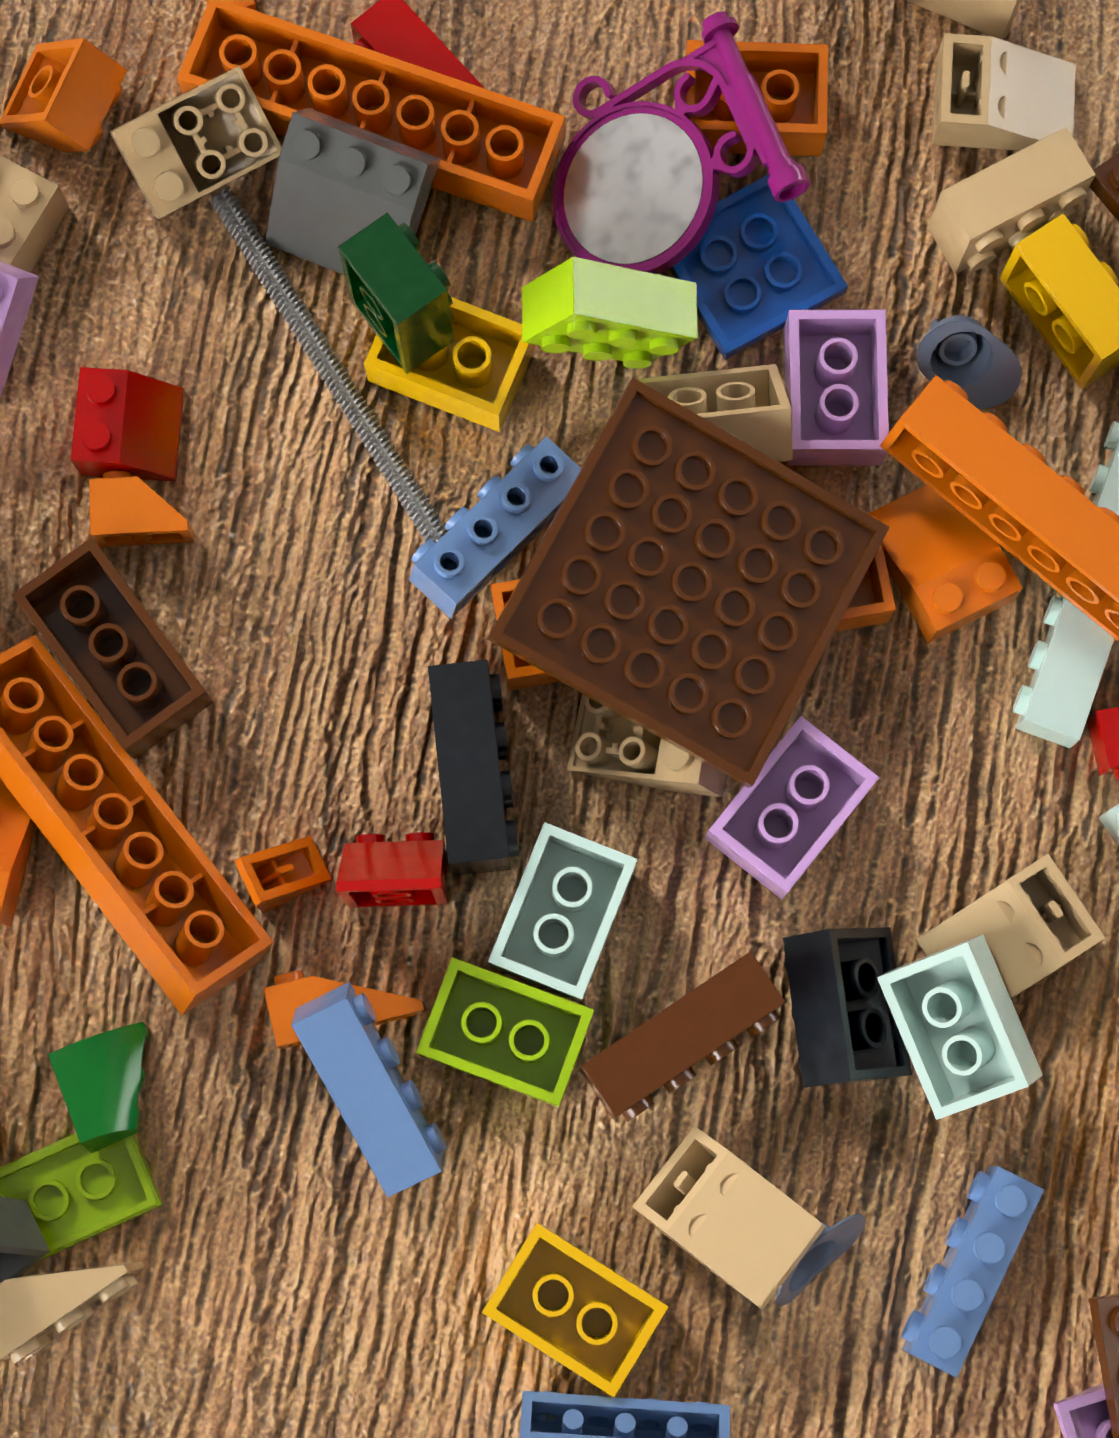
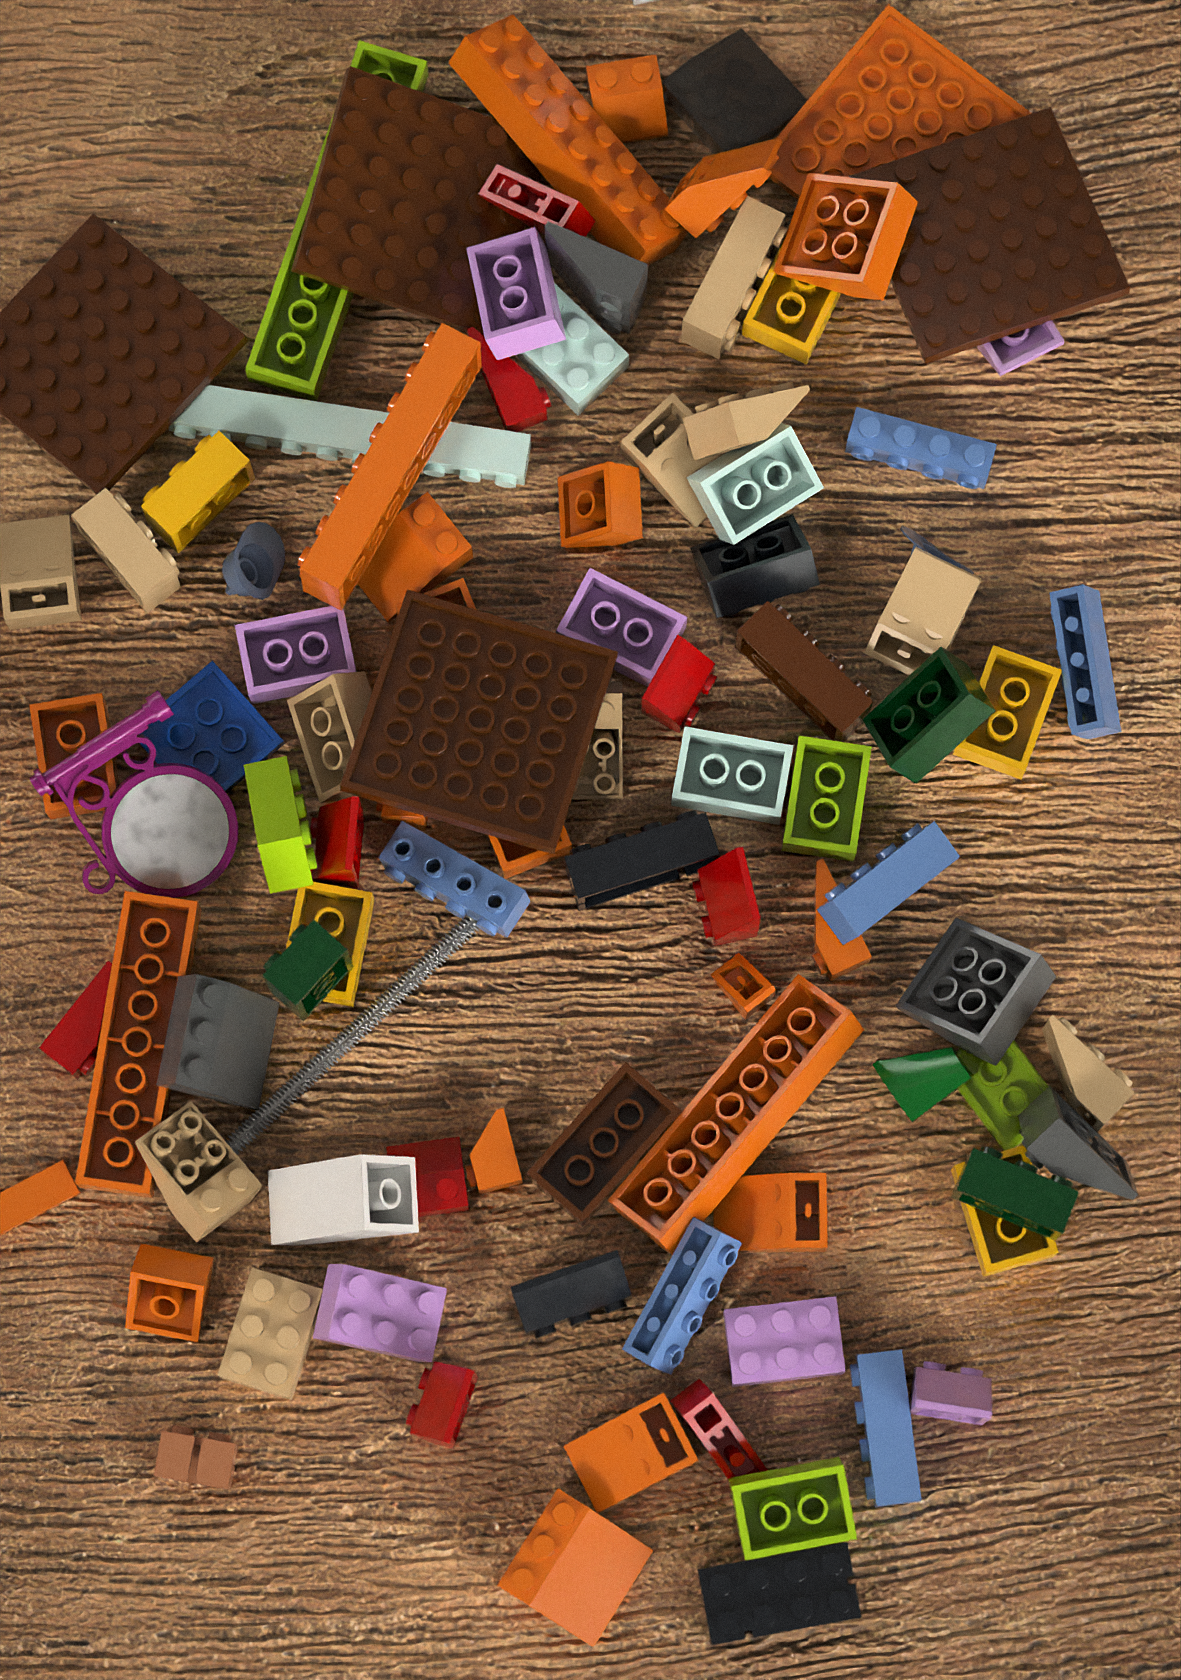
camera: 100 degrees left, 0 degrees up
(109, 309) = (343, 1200): none -> white slope
(202, 1180) = (977, 990): none -> dark grey slope
(568, 392) = (338, 842): none -> red slope
(585, 1194) = (928, 715): none -> dark green brick
(698, 867) = (678, 686): none -> red slope
(966, 818) = (600, 506): none -> orange slope
(1050, 1021) = (740, 420): none -> tan slope

